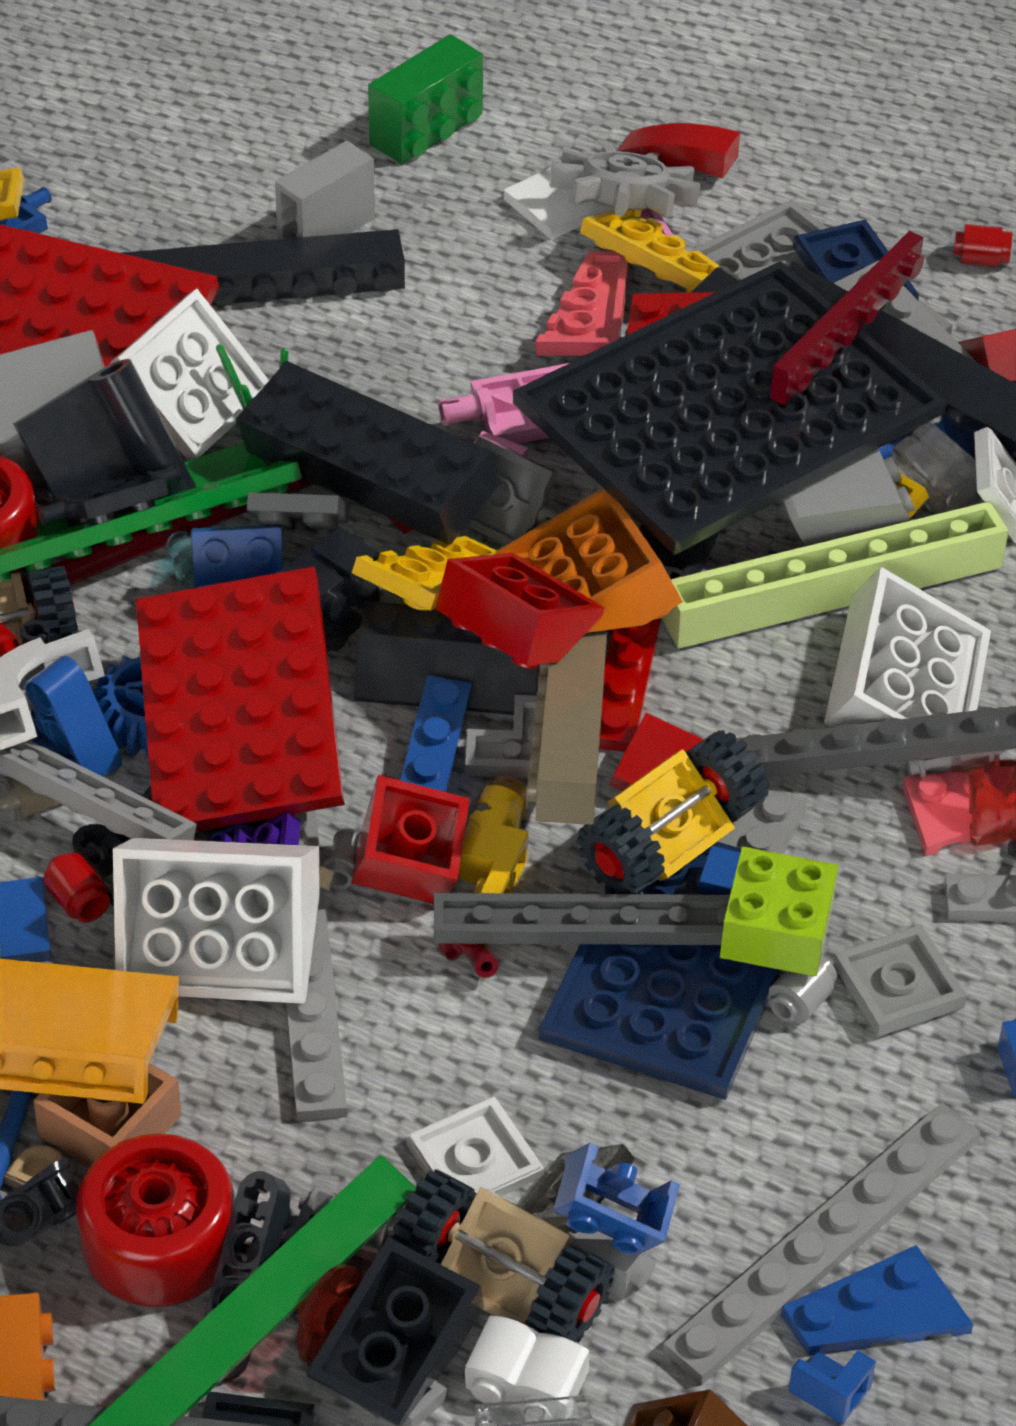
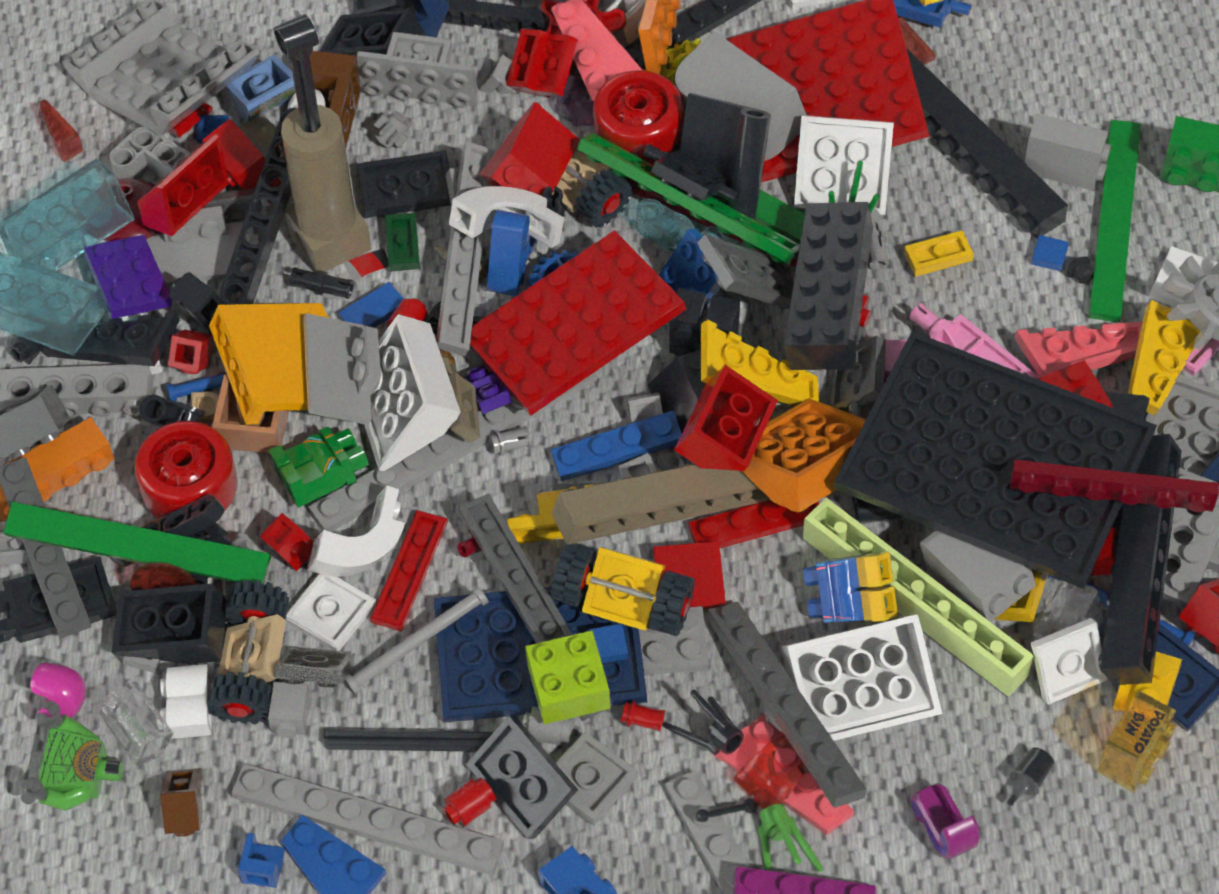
camera: 65 degrees right, 10 degrees up
(129, 576) = (663, 226): none -> clear light blue piece
(132, 956) = (340, 368): none -> light grey bracket
(243, 1065) = (318, 464): none -> green hips
(349, 1143) = (288, 541): none -> red brick
(369, 363) = (938, 253): none -> yellow plate
(398, 707) = (644, 407): none -> light grey plate
(409, 1051) = (348, 556): none -> white arch
(410, 840) = (526, 462): red slope -> none
(435, 283) = (1050, 253): none -> blue tile
(459, 230) = (1115, 222): none -> green tile
(469, 1046) = (409, 570): none -> red tile
(480, 269) = (1080, 269): none -> black piece
(581, 971) = (416, 639): none -> light grey bar
(619, 1186) = (273, 674): blue window -> none
(742, 1131) = (405, 740): none -> black axle
(801, 614) = (841, 593): none -> hips
(848, 887) = (642, 716): none -> red pin
(868, 1113) = (468, 802): none -> red brick
(869, 1038) = (522, 777): none -> plate
(921, 817) = (722, 732): none -> black plant

